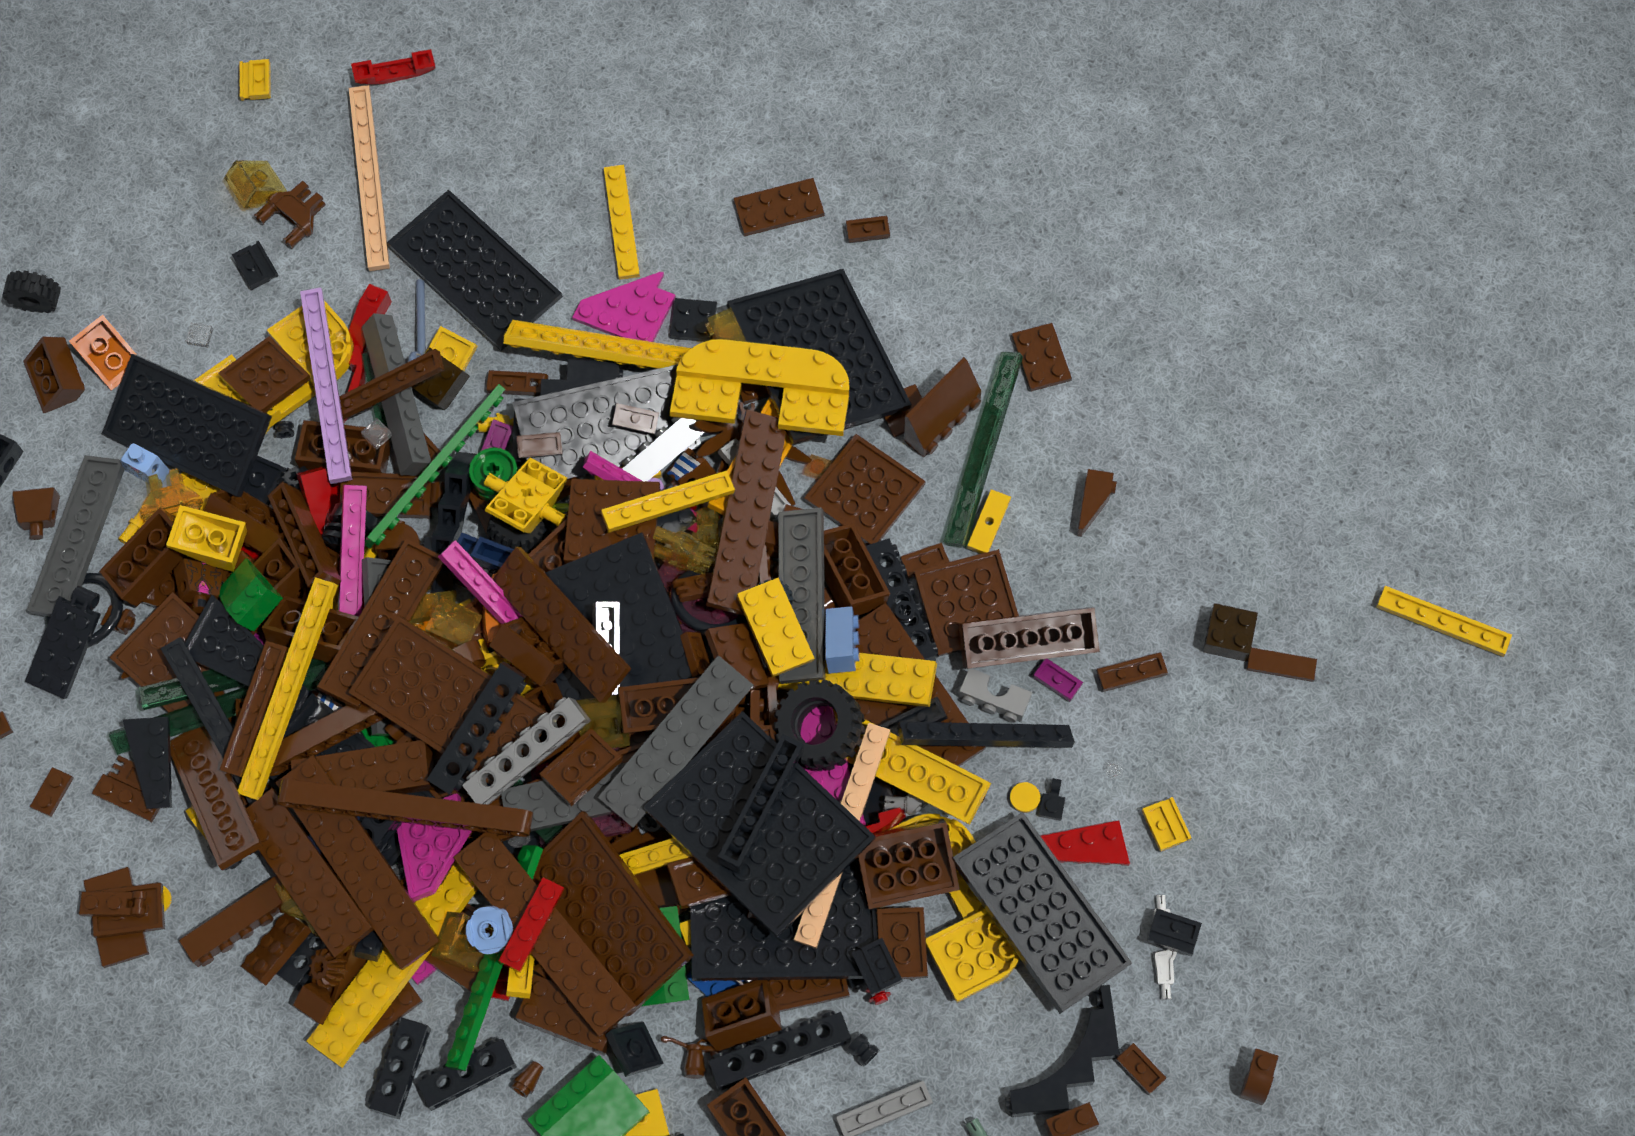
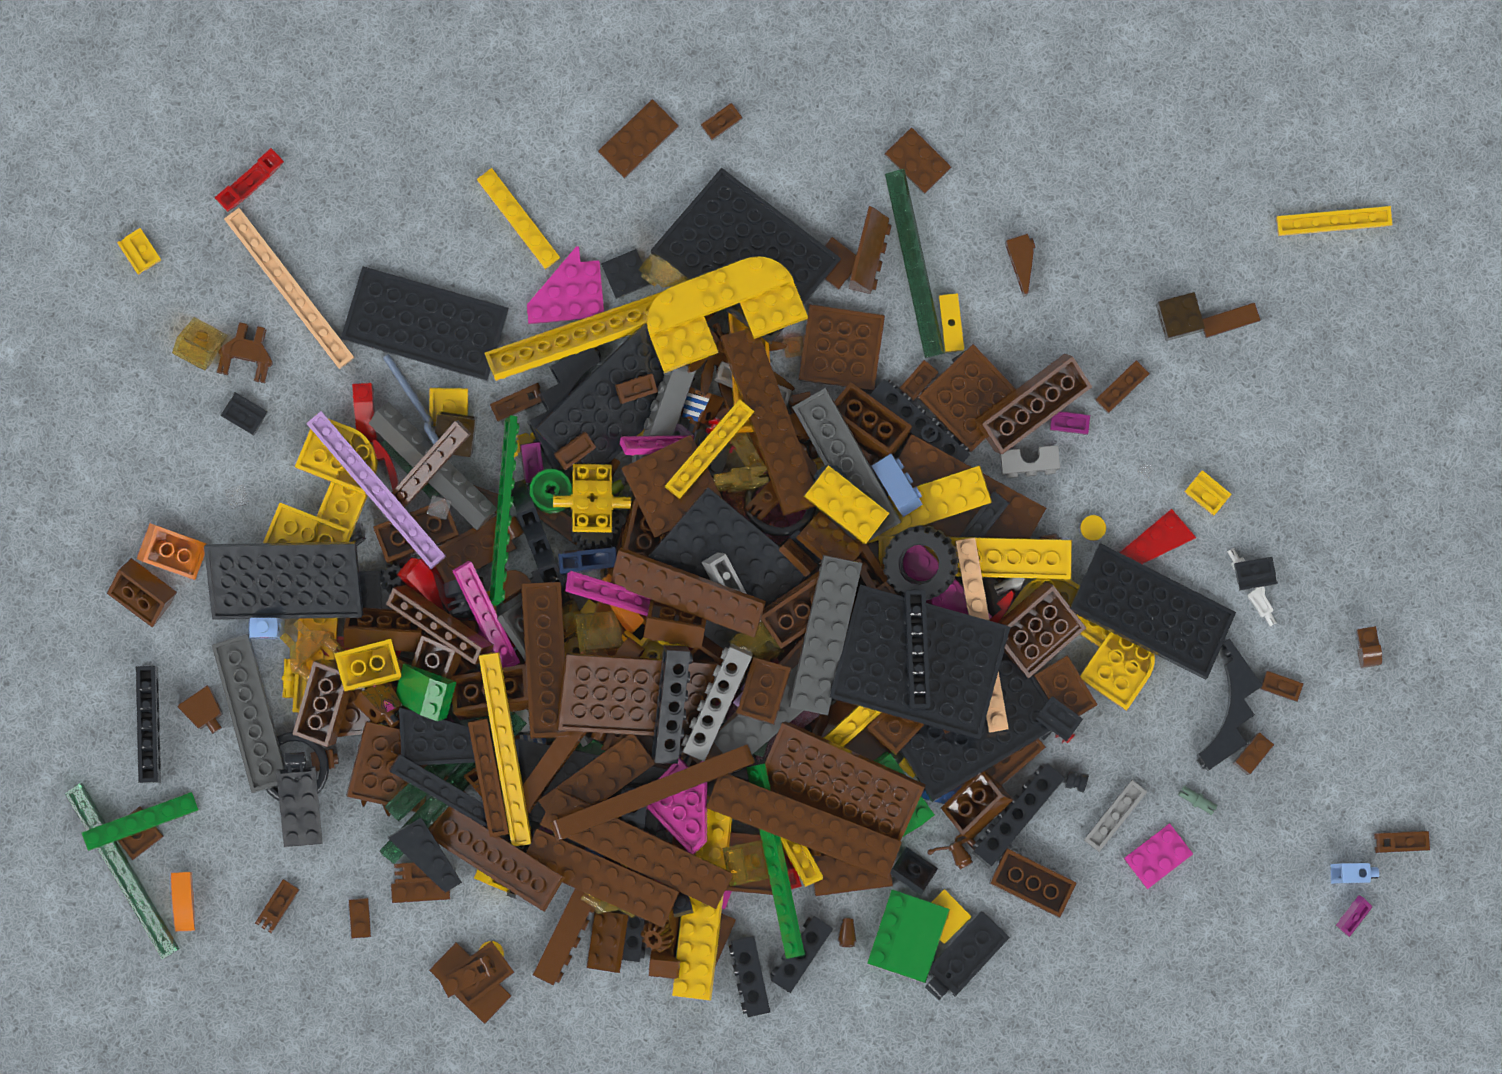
camera: 35 degrees left, 15 degrees up
(31, 291) = (82, 535): black tyre -> none
(264, 375) = (321, 508): reddish brown plate -> none
(499, 921) = (764, 856): light blue plate -> none
(531, 925) = (794, 826): red plate -> none
(985, 734) = (1043, 499): black plate -> none
(1052, 804) = (1116, 522): black plate -> none

